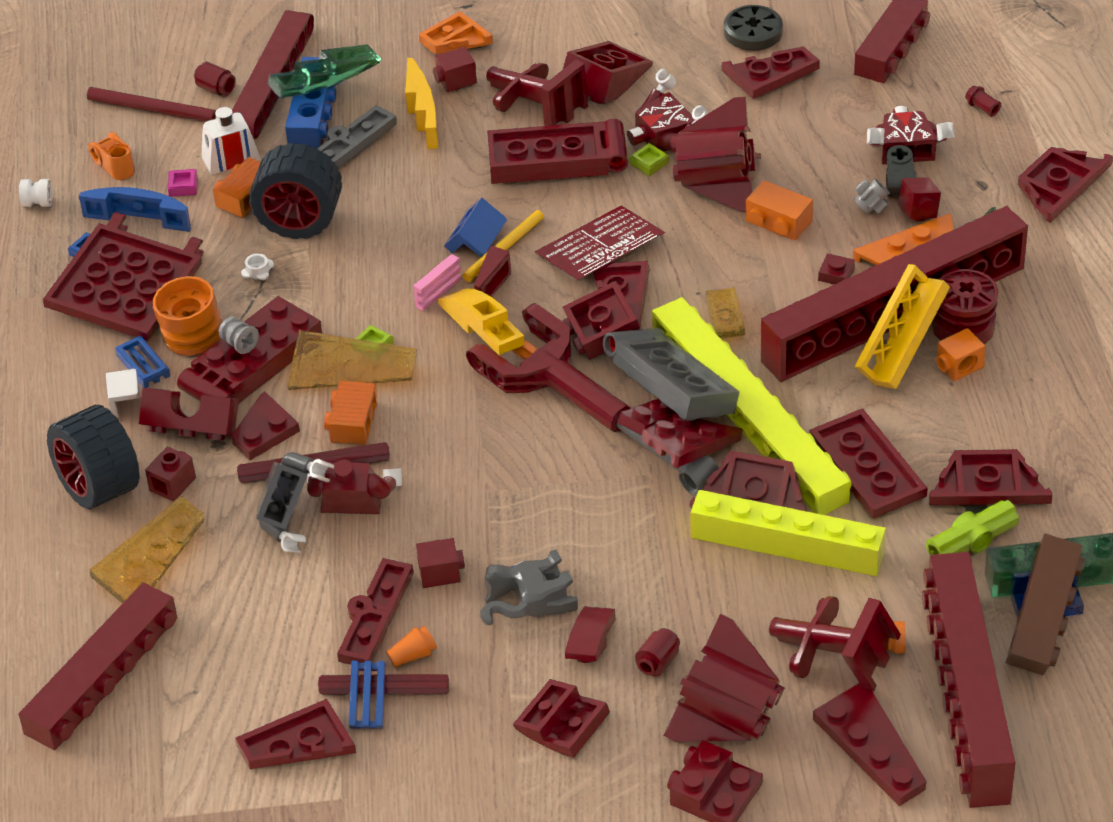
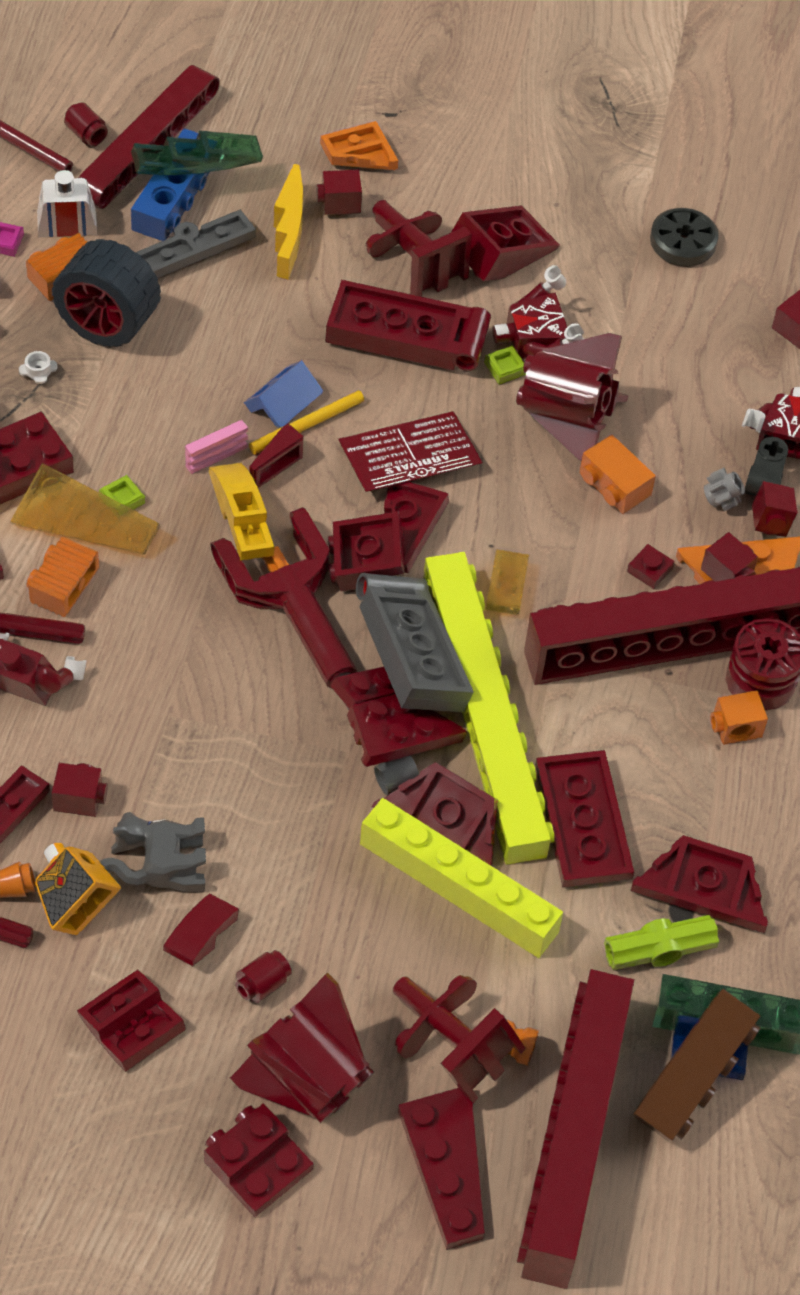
camera: 10 degrees right, 10 degrees up
(471, 631) = (73, 888): none -> torso
(766, 74) = (678, 299): dark red wing -> none
(900, 238) = (728, 559): none -> dark red brick
(906, 332) = (686, 674): yellow fence -> none

